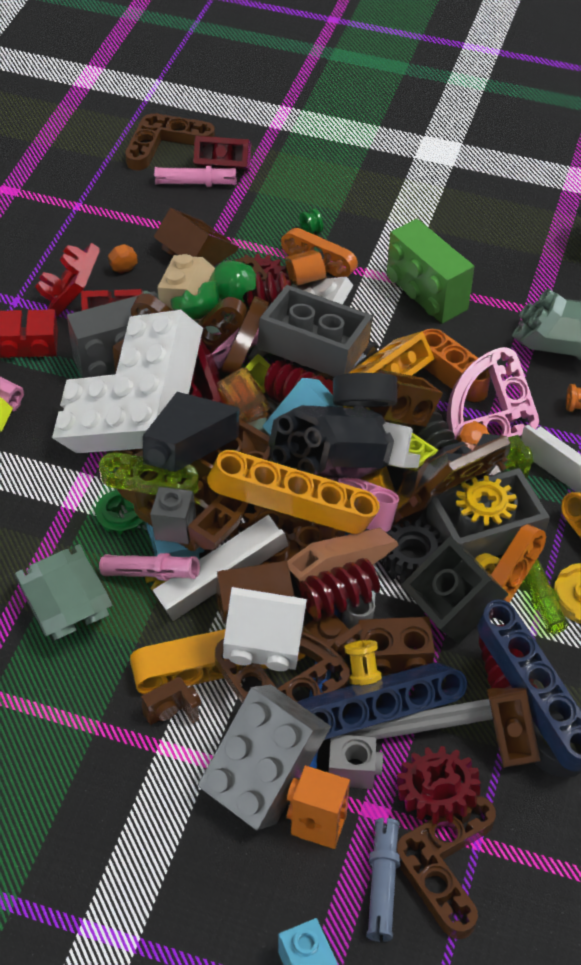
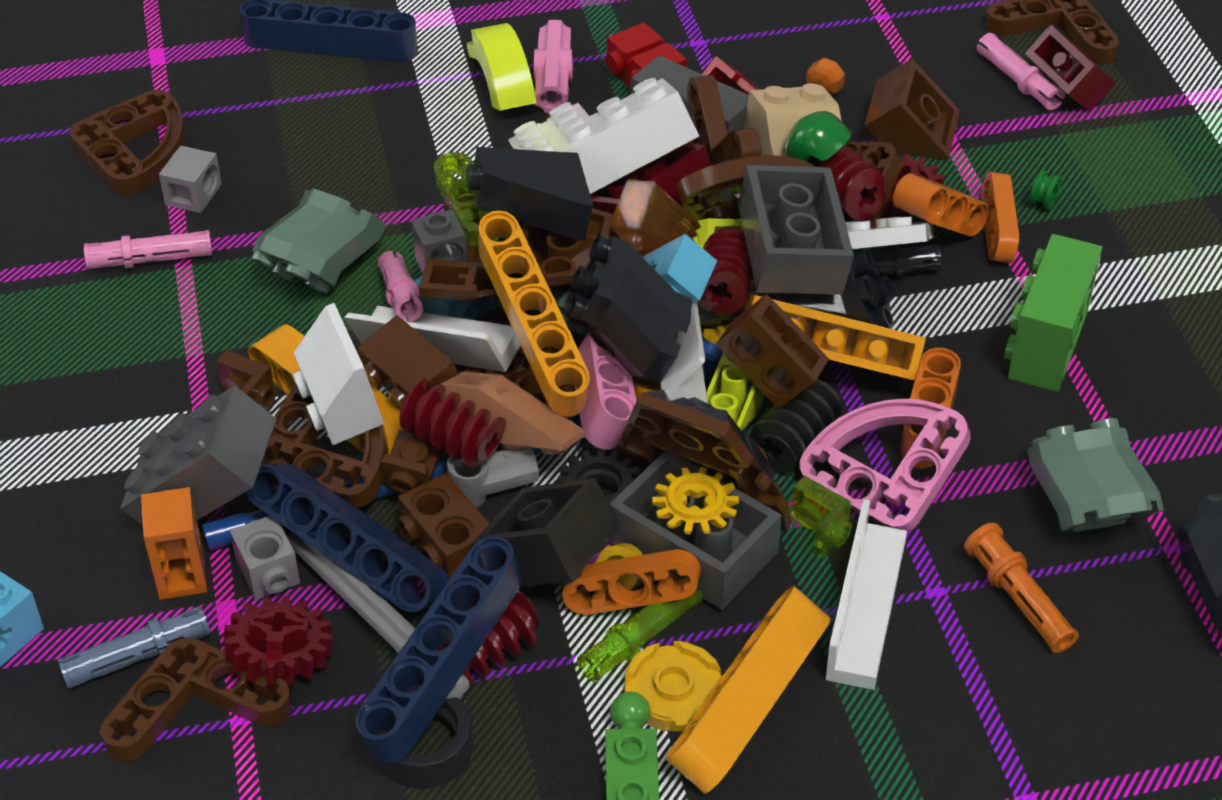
camera: 60 degrees right, 5 degrees down
(73, 280) = (748, 46): red piece -> none
(197, 305) = (750, 115): green hair -> none
(360, 653) = (380, 494): yellow bush -> none
(365, 389) = (711, 290): black tyre -> none
(471, 432) = (815, 463): orange tile -> none
(513, 726) = (385, 643): reddish brown slope -> none

